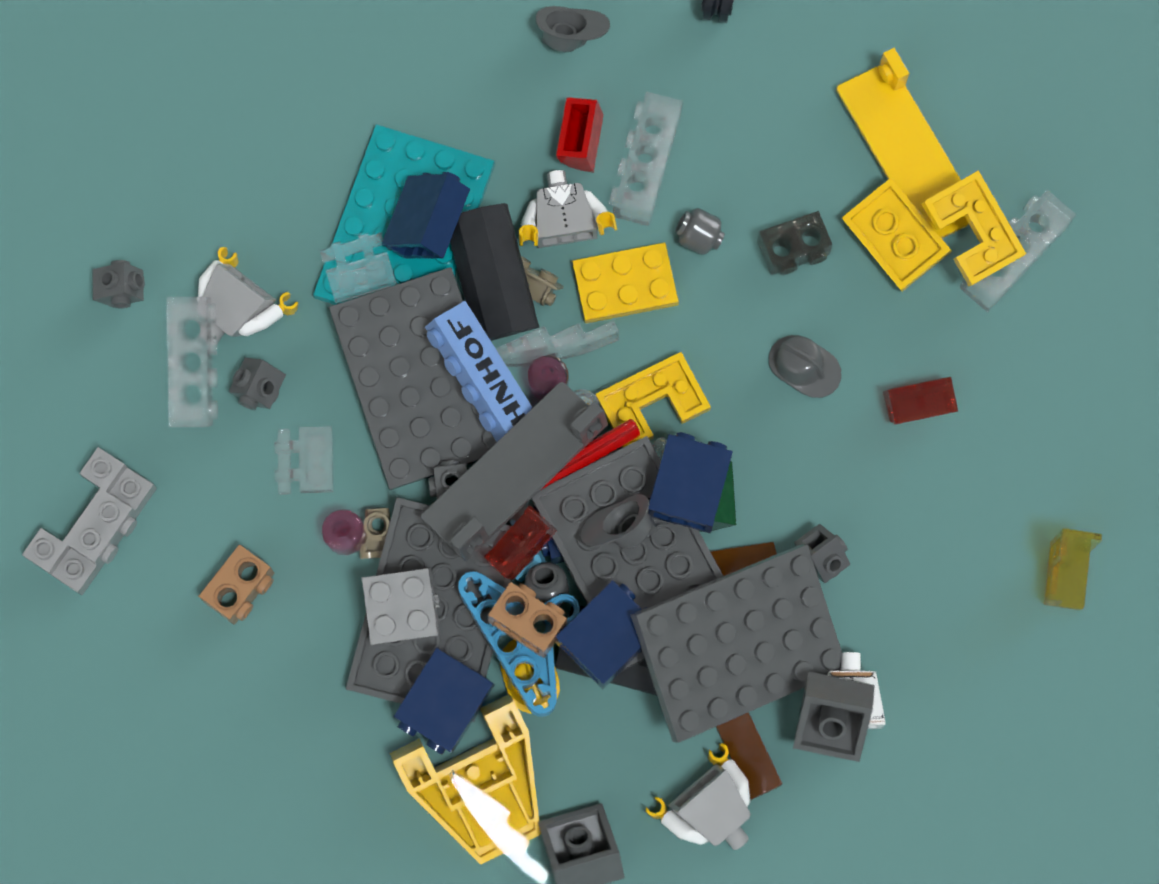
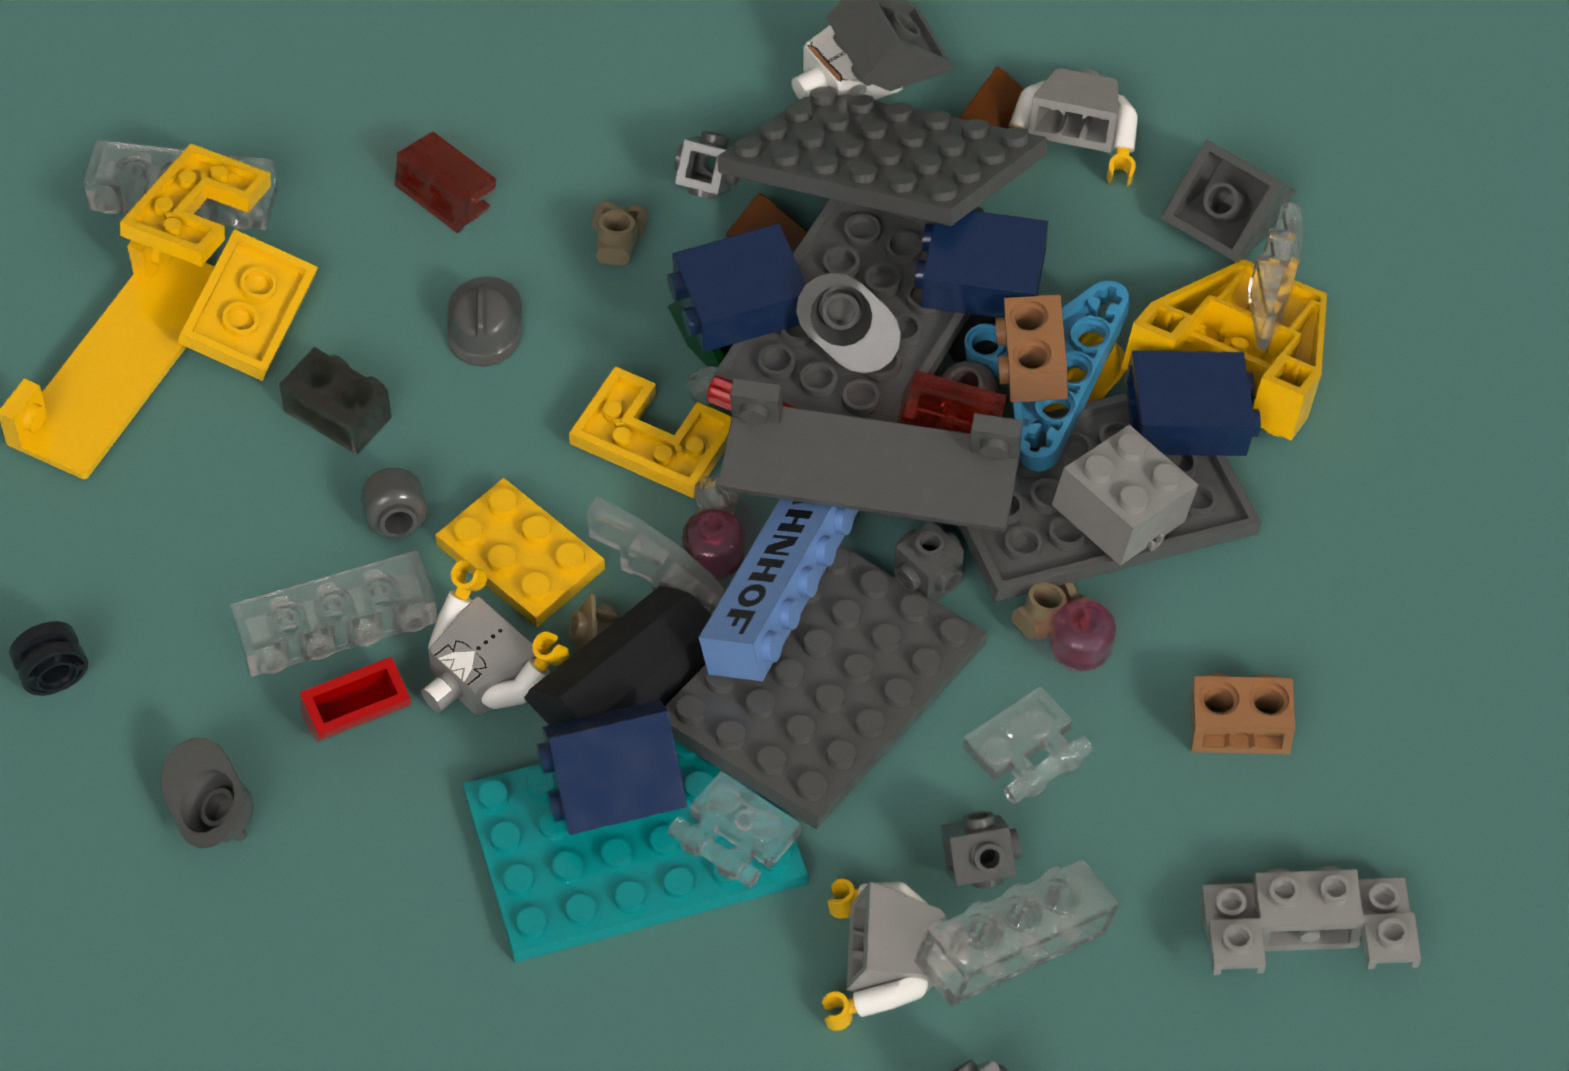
camera: 125 degrees left, 20 degrees down
(819, 477) = (617, 231): none -> dark tan plate

